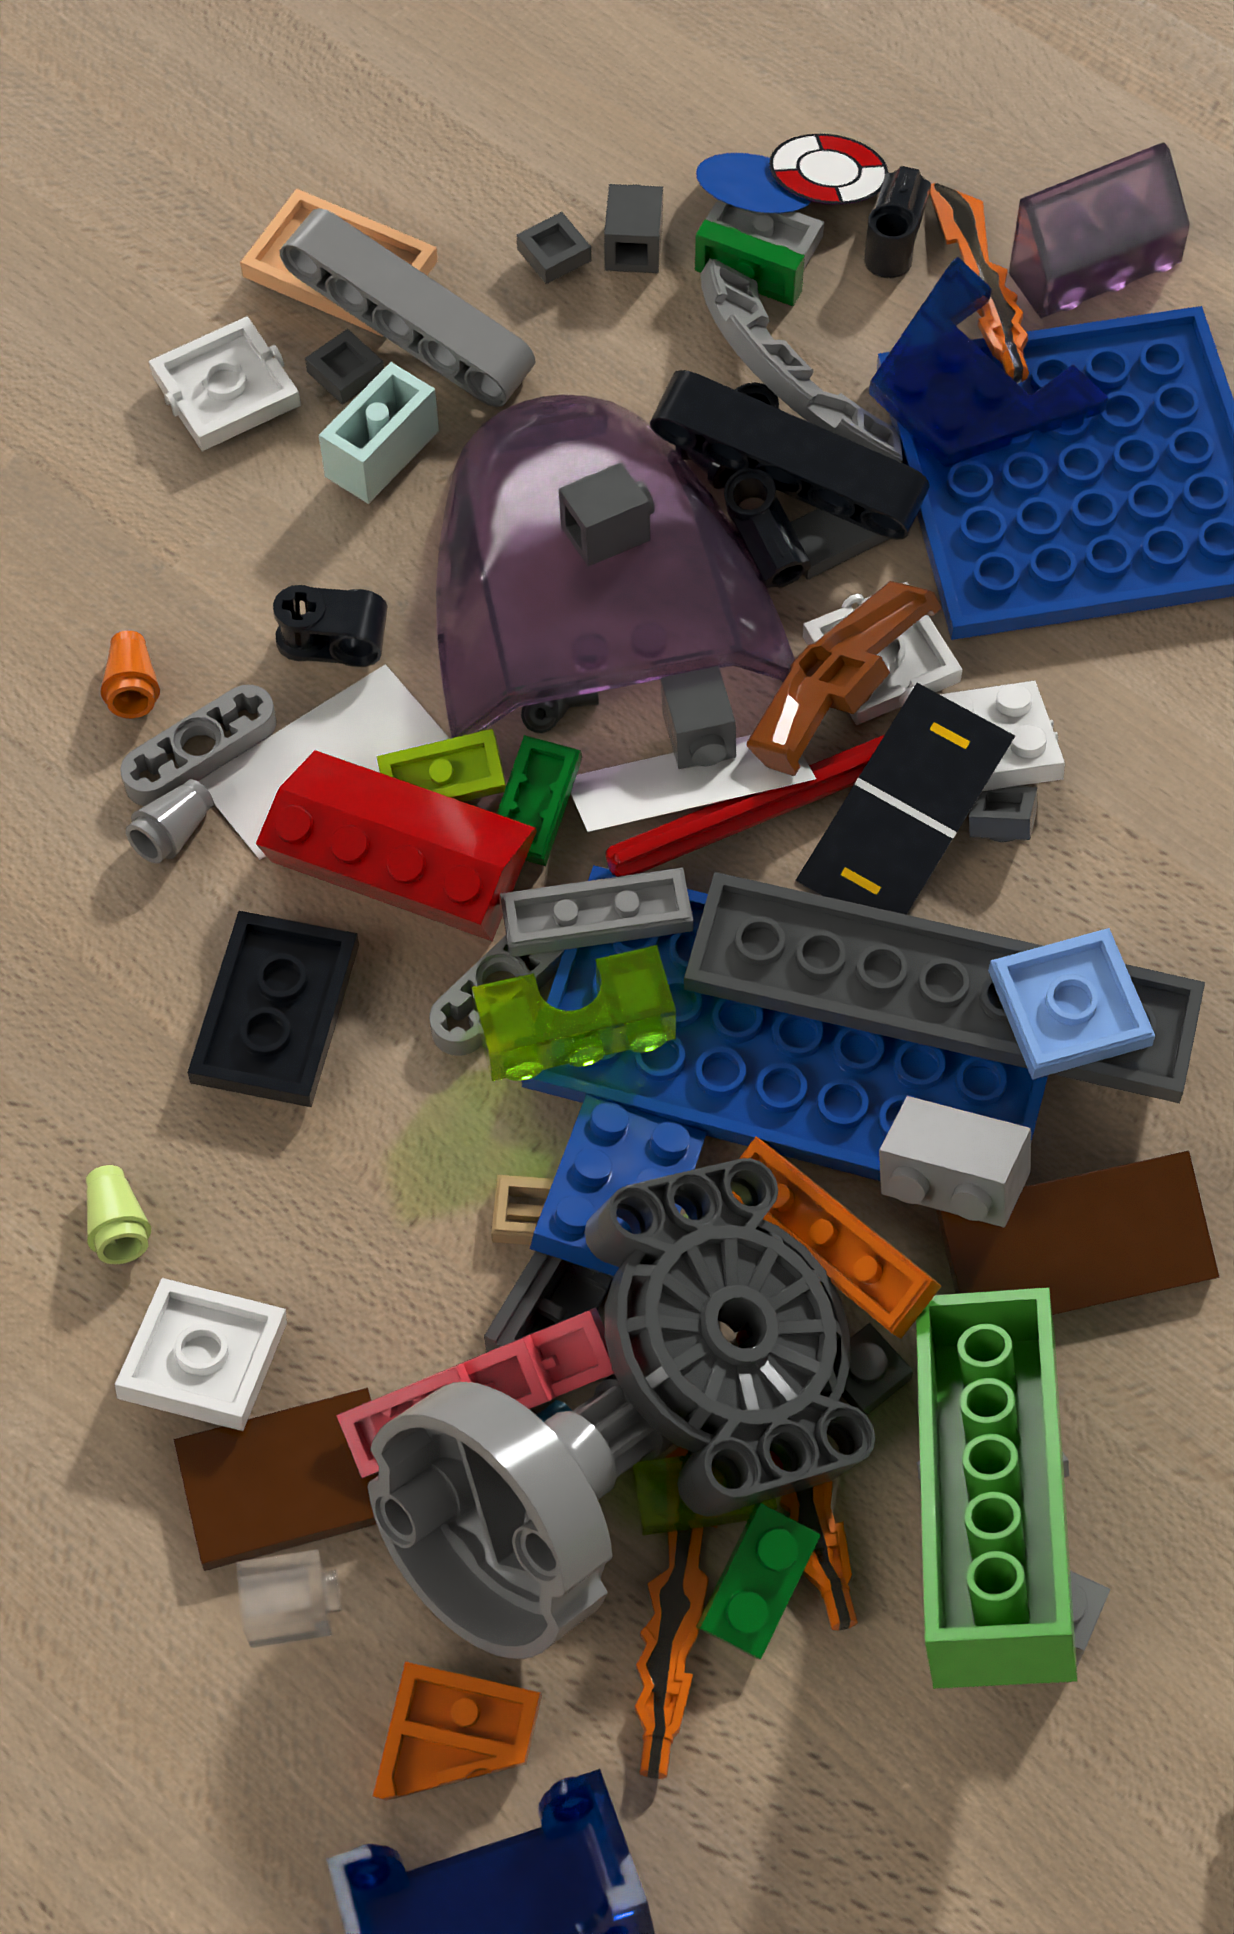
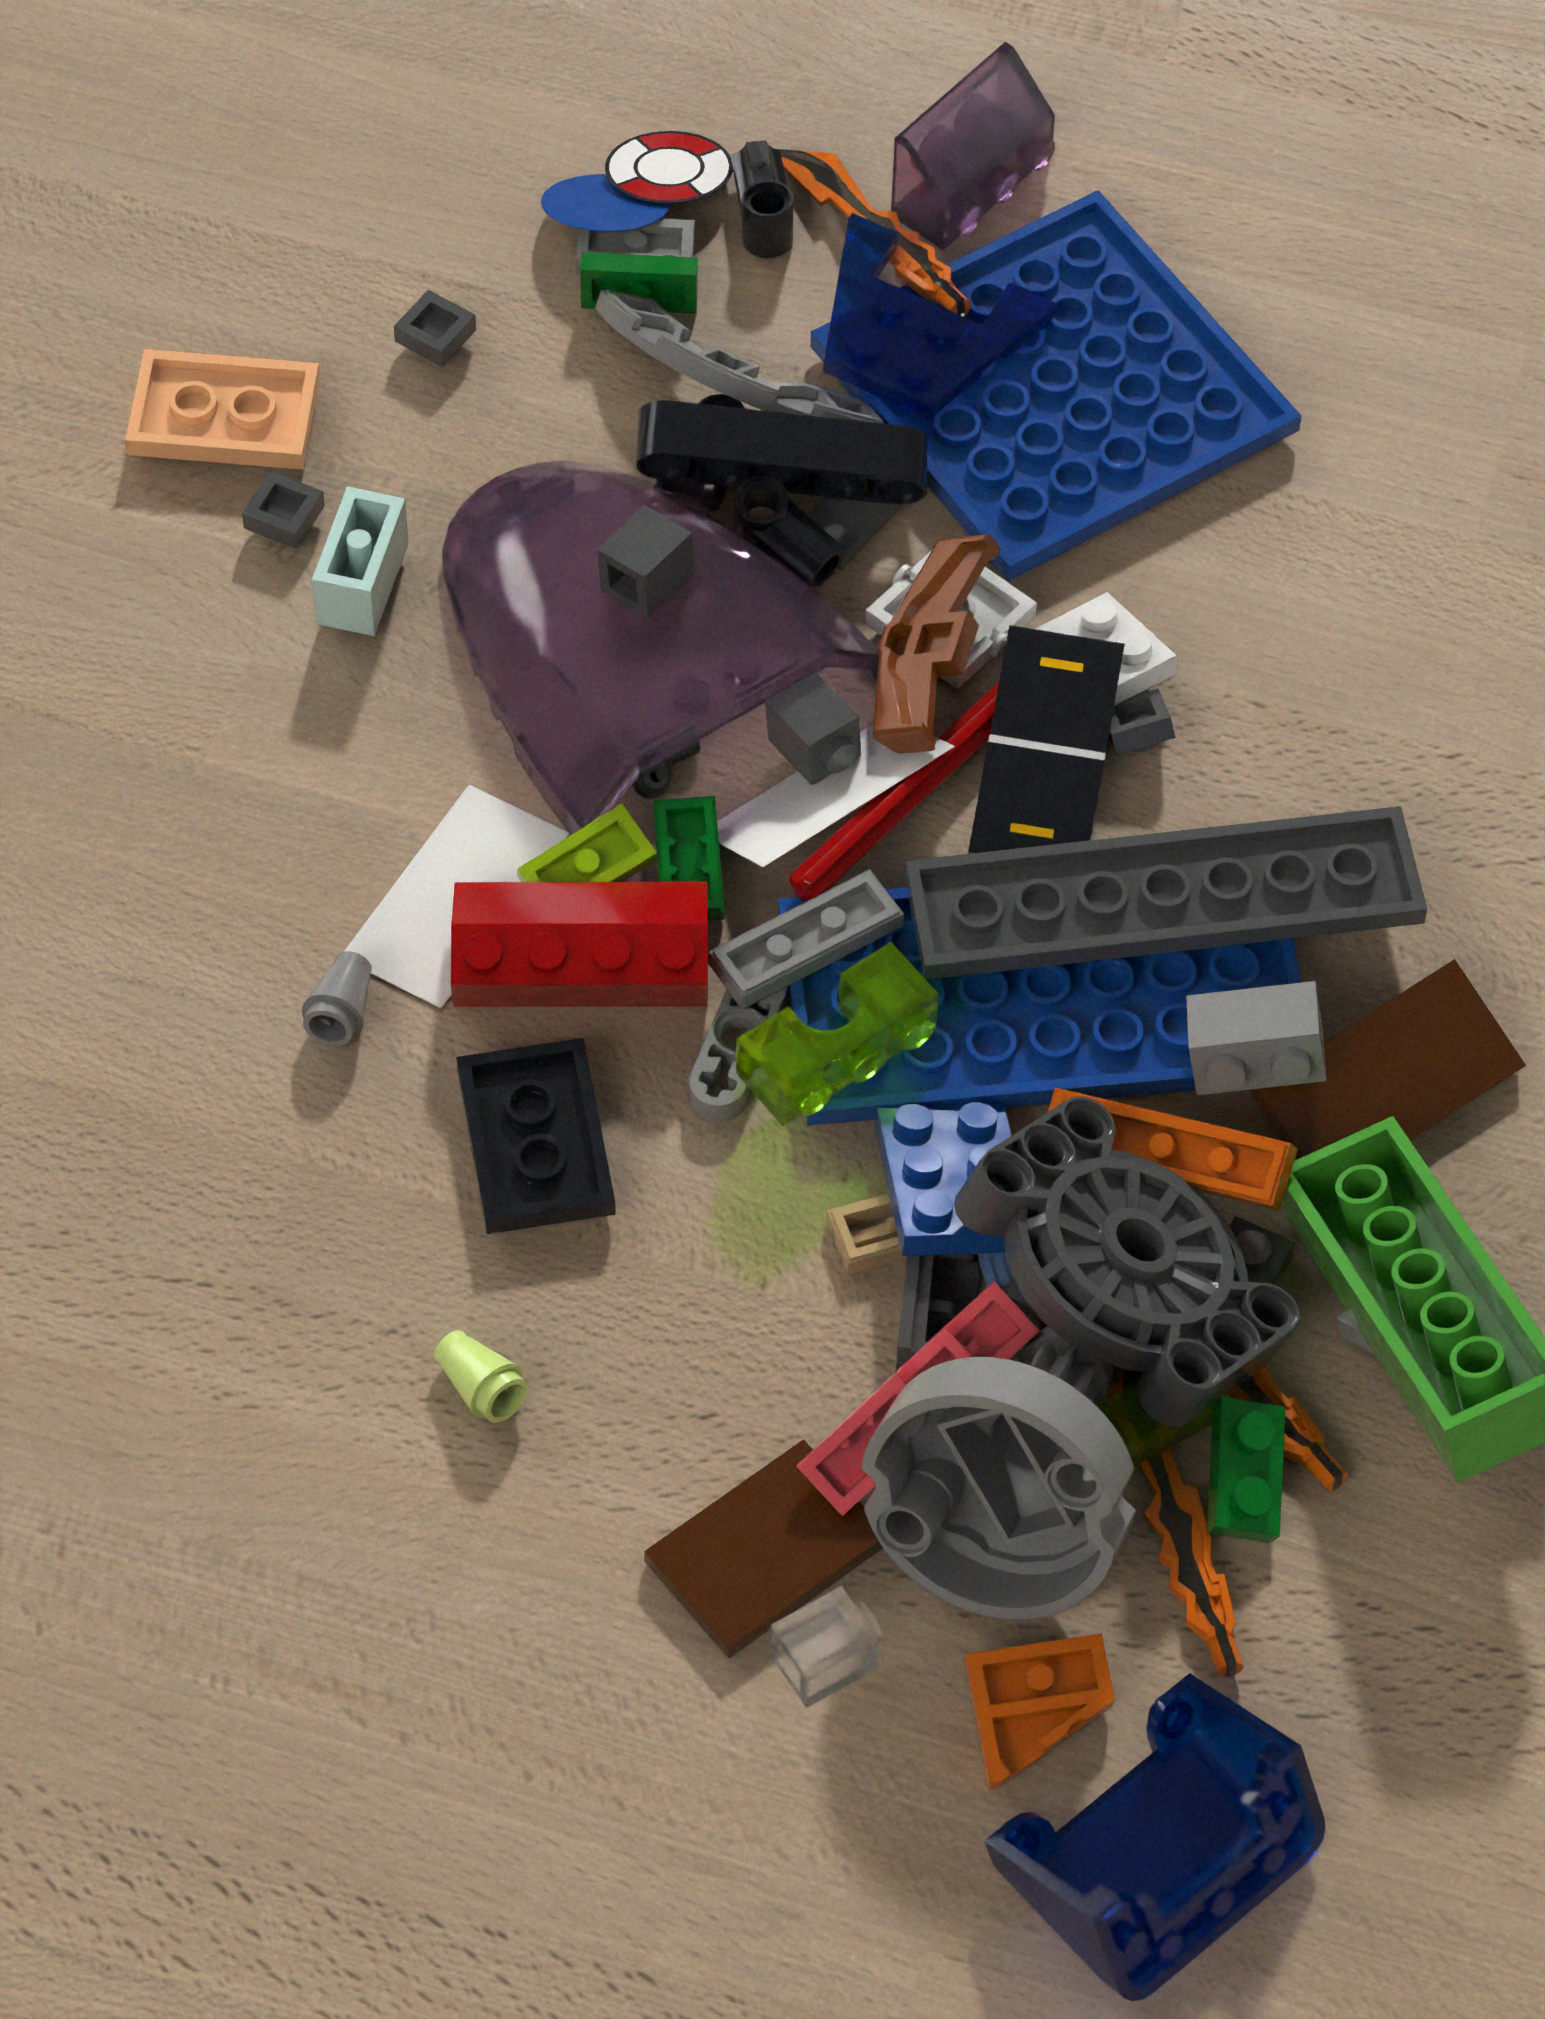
camera: 25 degrees left, 5 degrees down
(129, 677) = (225, 877): orange cone -> none
(201, 1354) = (634, 1465): white plate -> none
(205, 721) = (326, 894): light grey beam -> none
(225, 383) = (169, 564): white plate -> none
(336, 625) = (407, 759): black piece -> none
(407, 307) = (327, 430): light grey beam -> none
(633, 228) = (507, 284): dark grey brick -> none
(1071, 1003) = (1292, 864): light blue tile -> none

